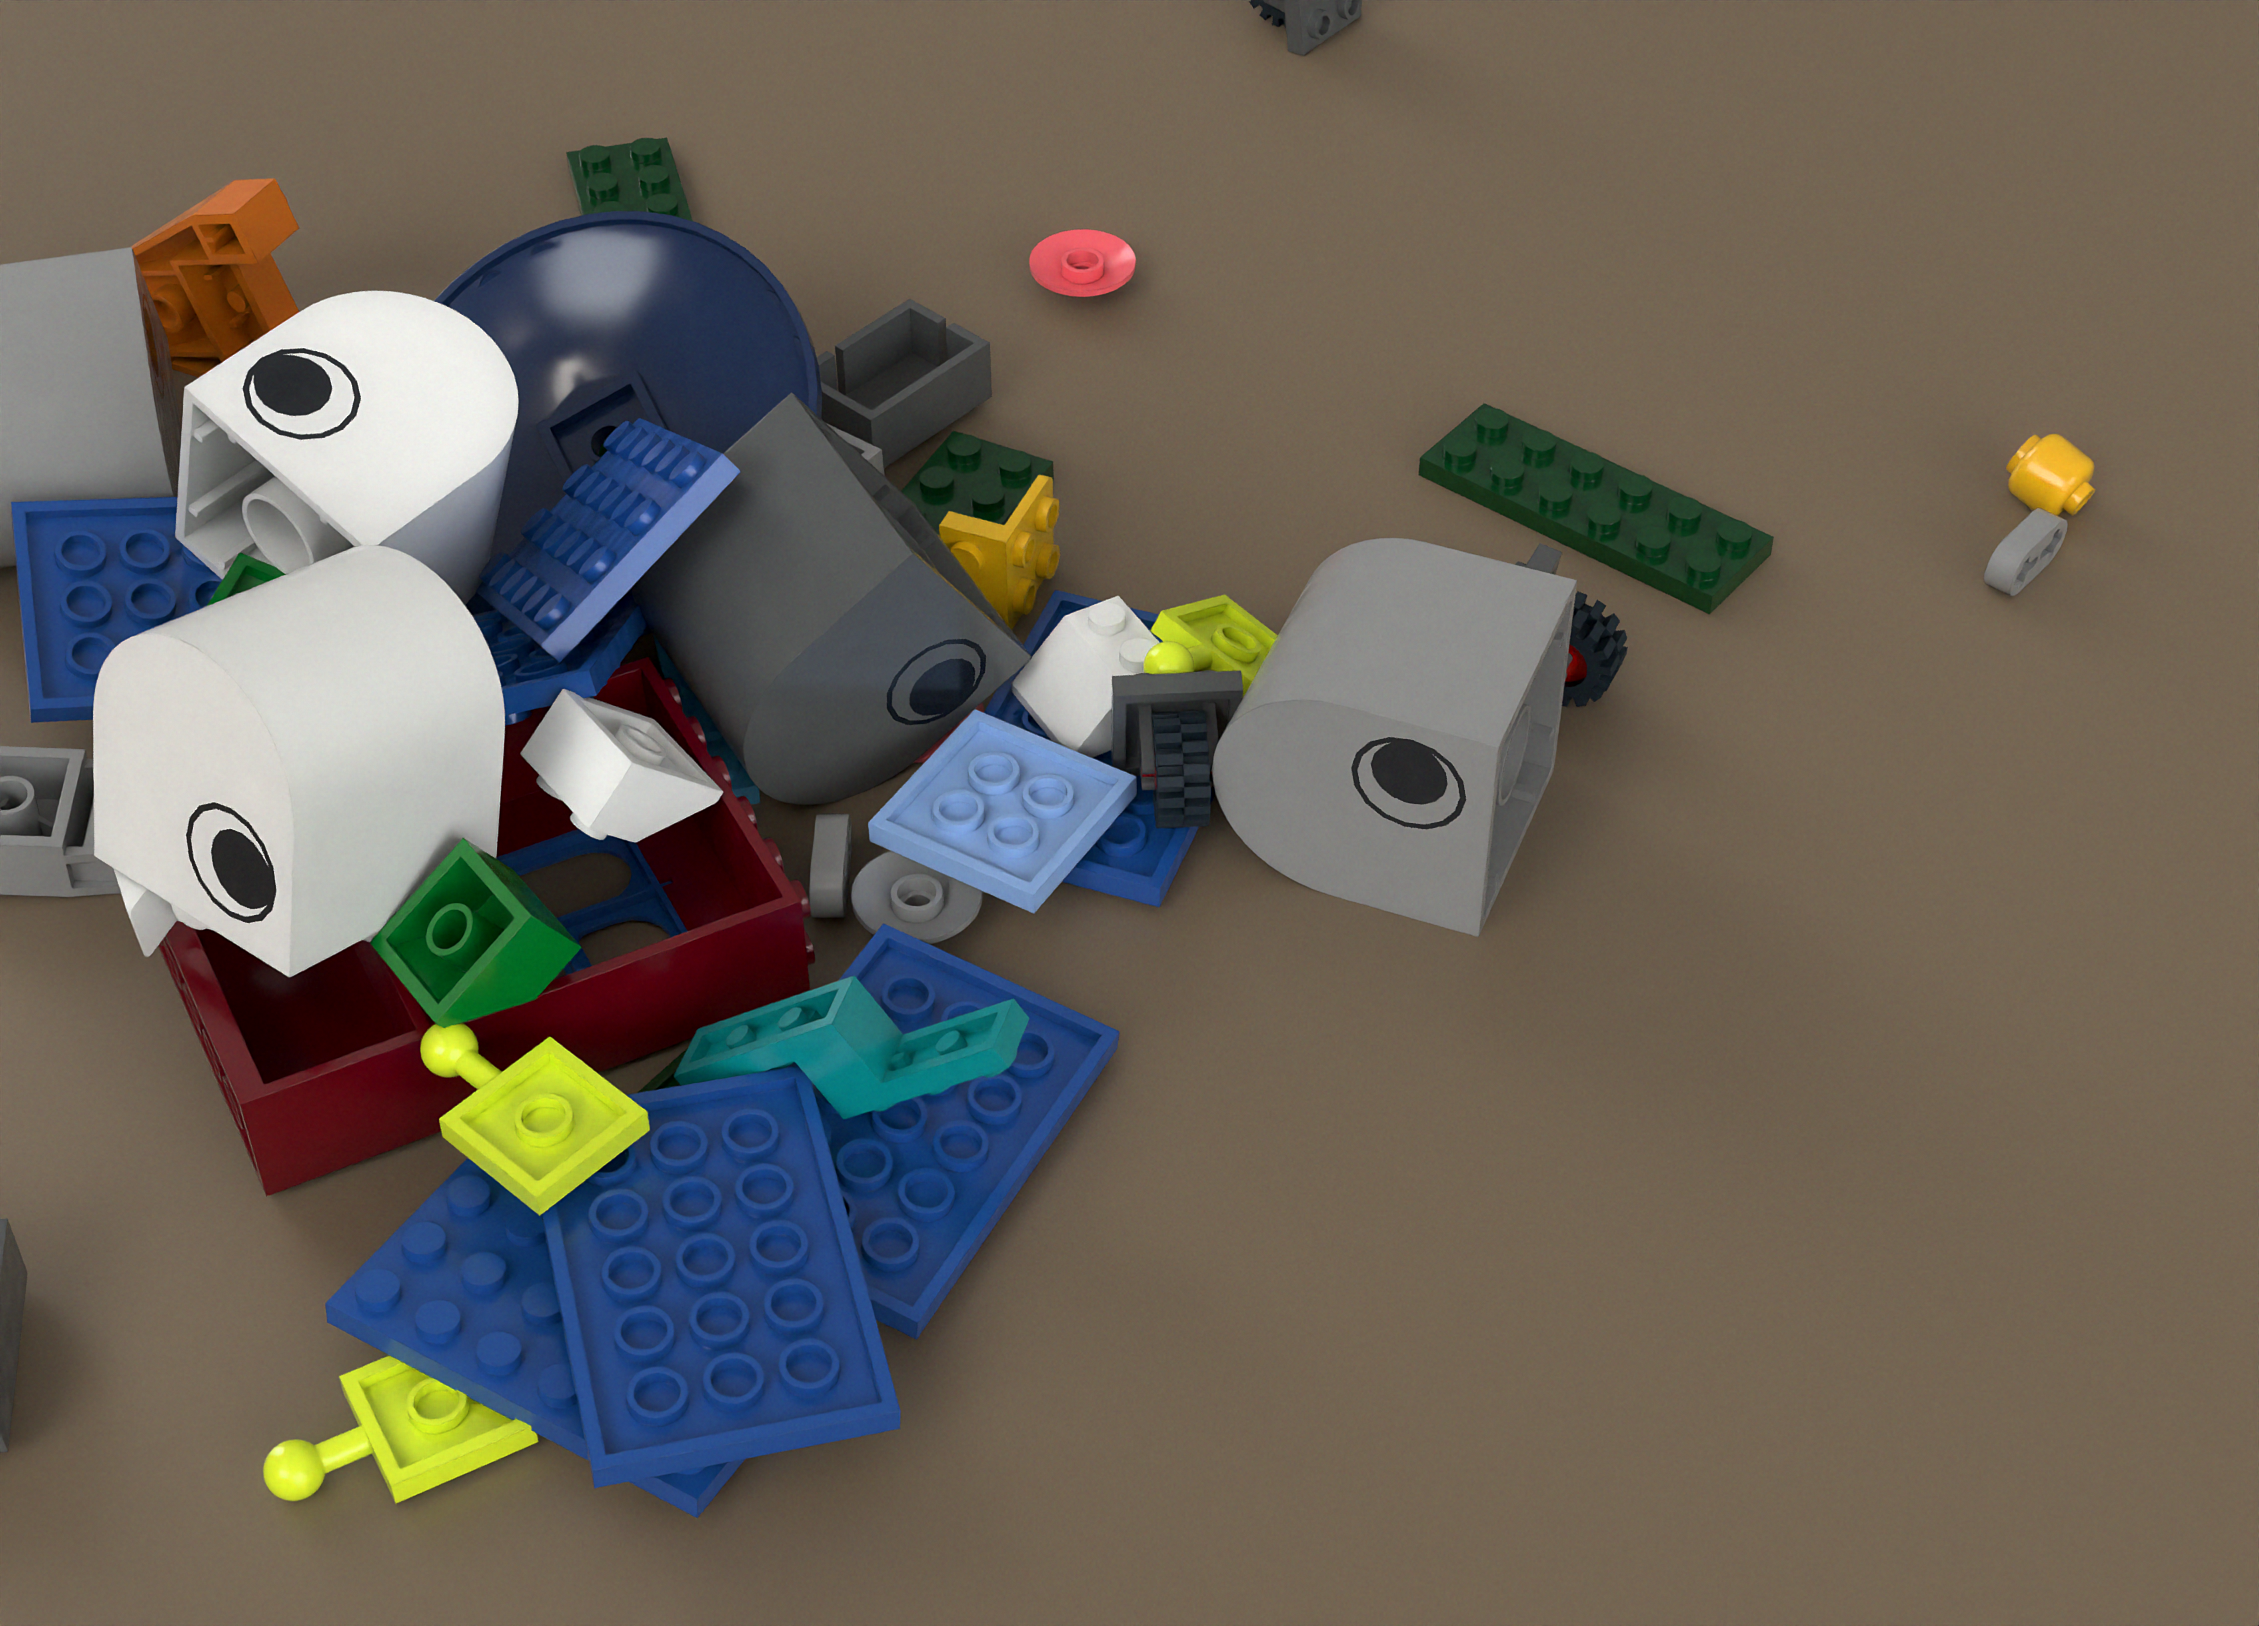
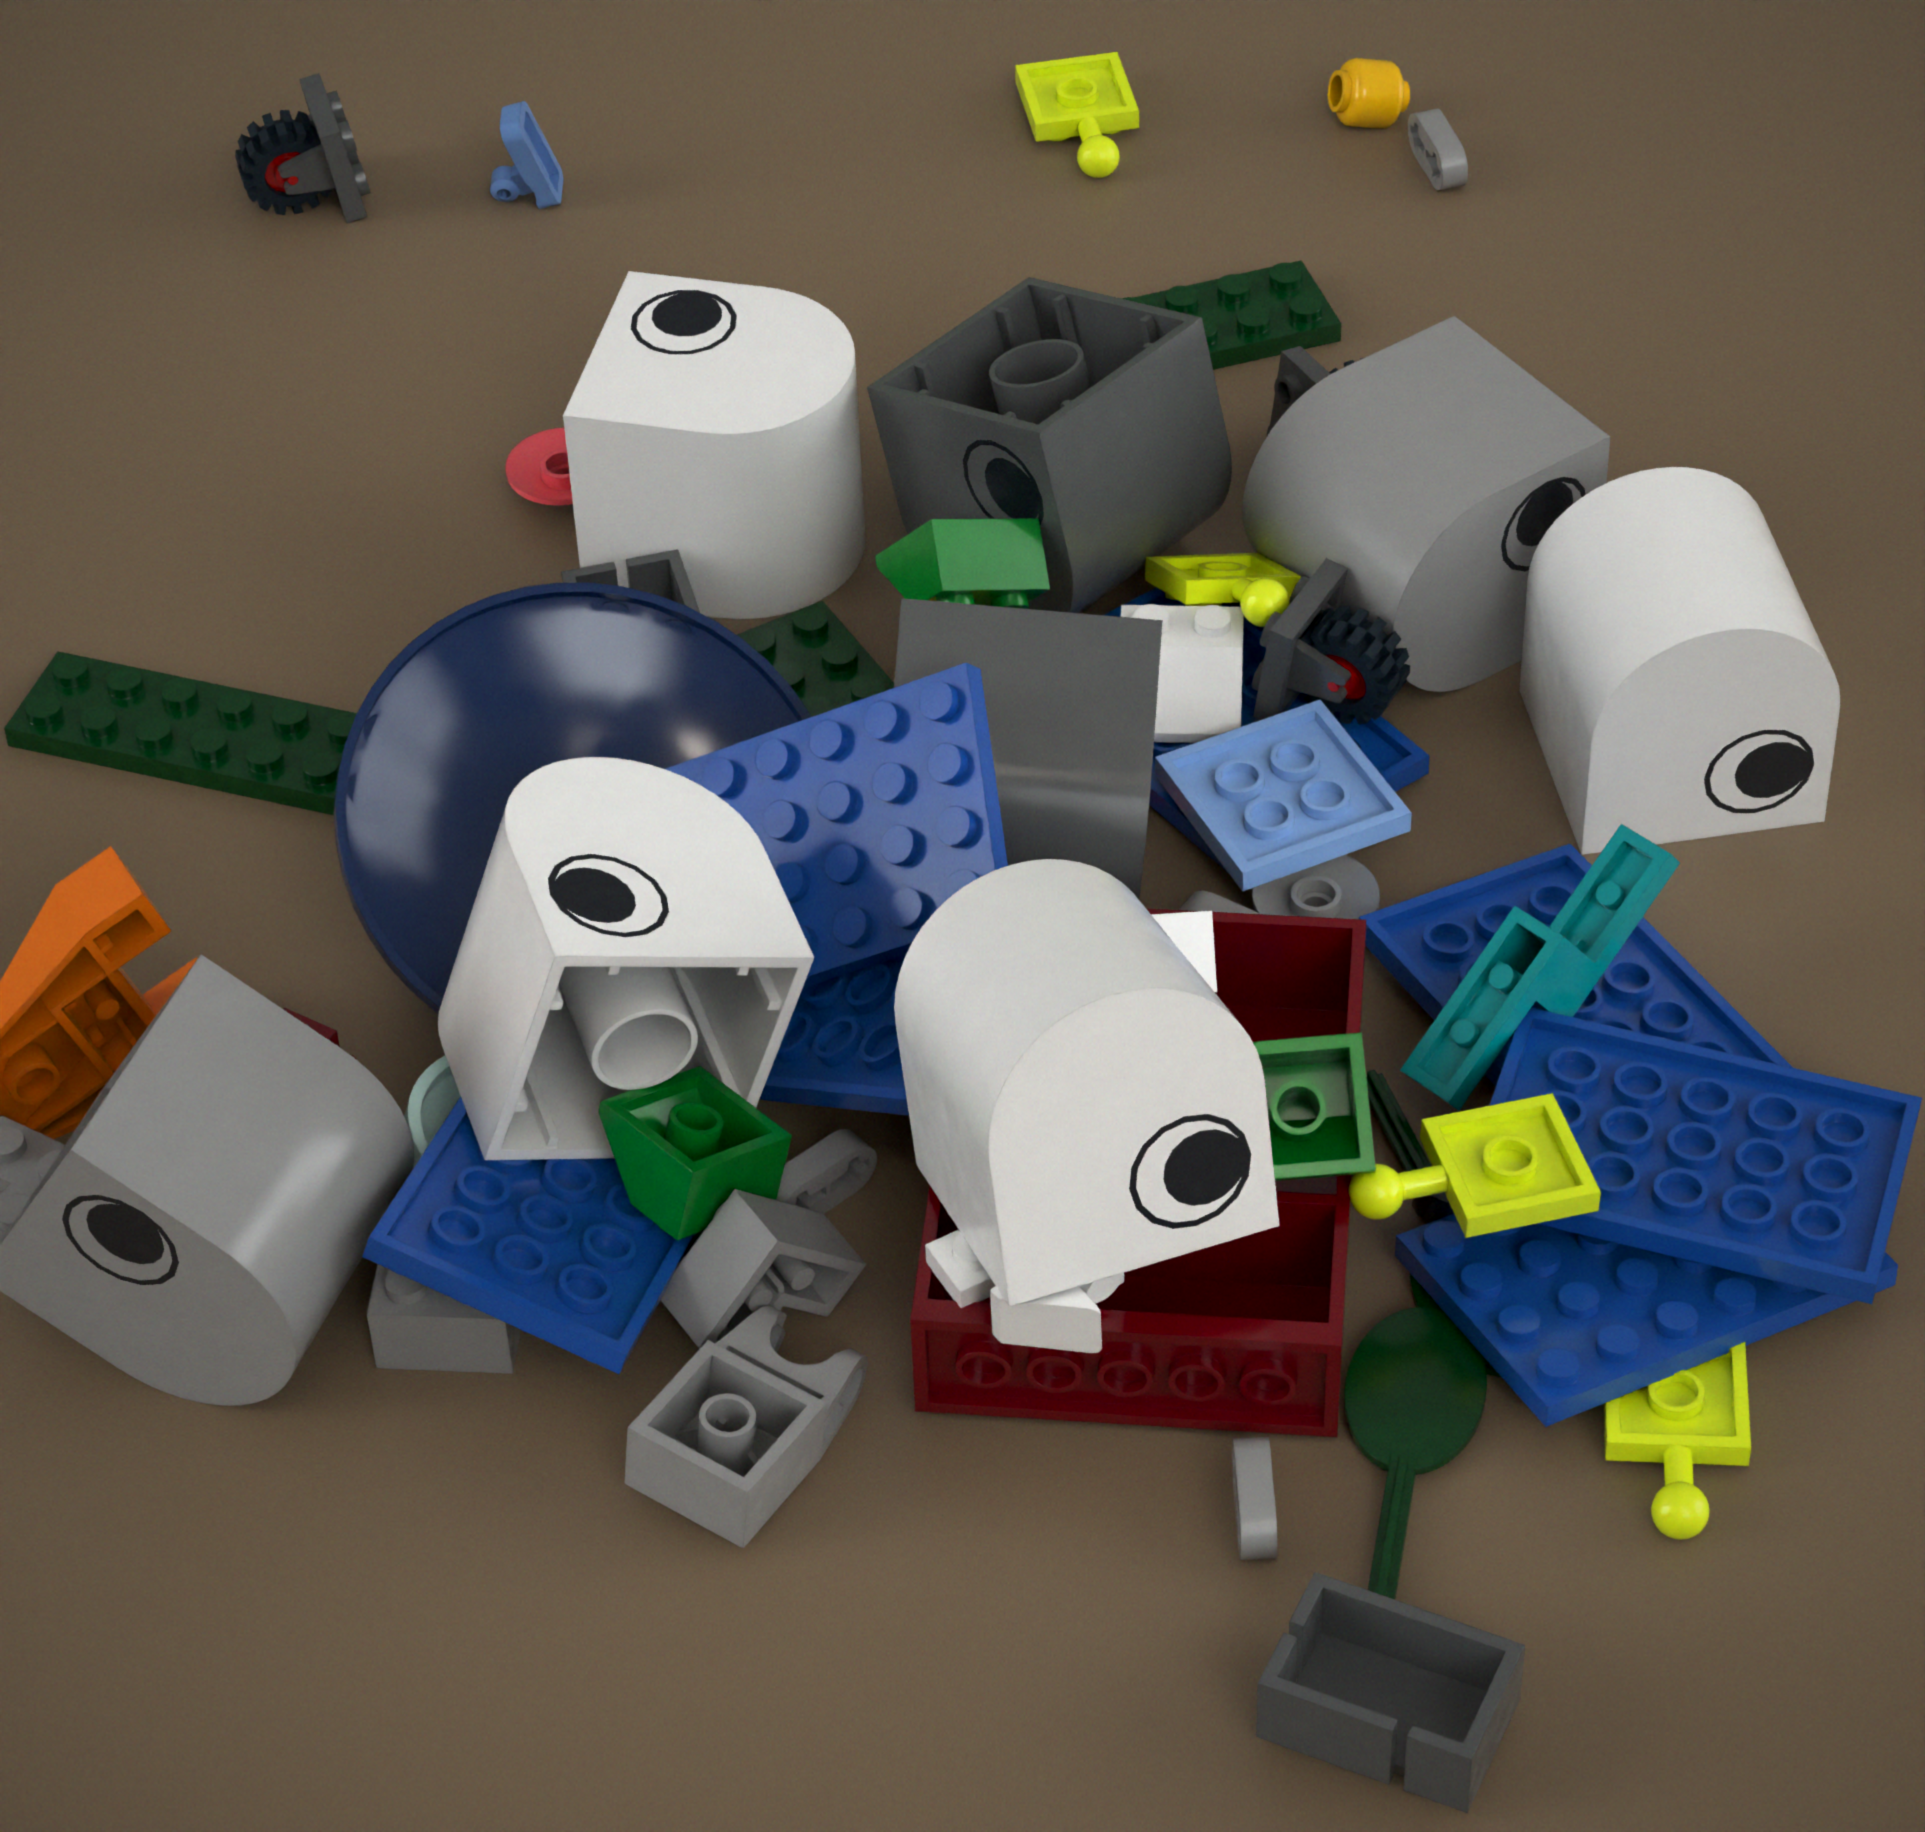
camera: 55 degrees left, 0 degrees up
(144, 1166) = (1254, 1498): none -> light grey beam
(299, 1241) = (1410, 1410): none -> dark green piece
(1046, 477) = (969, 562): none -> green slope
(1096, 296) = (720, 433): none -> white brick
(1238, 454) = (1063, 415): none -> dark grey brick
(1352, 980) = (1675, 665): none -> white brick
(1418, 78) = (535, 163): none -> medium blue piece
(1843, 320) = (1080, 99): none -> neon yellow plate

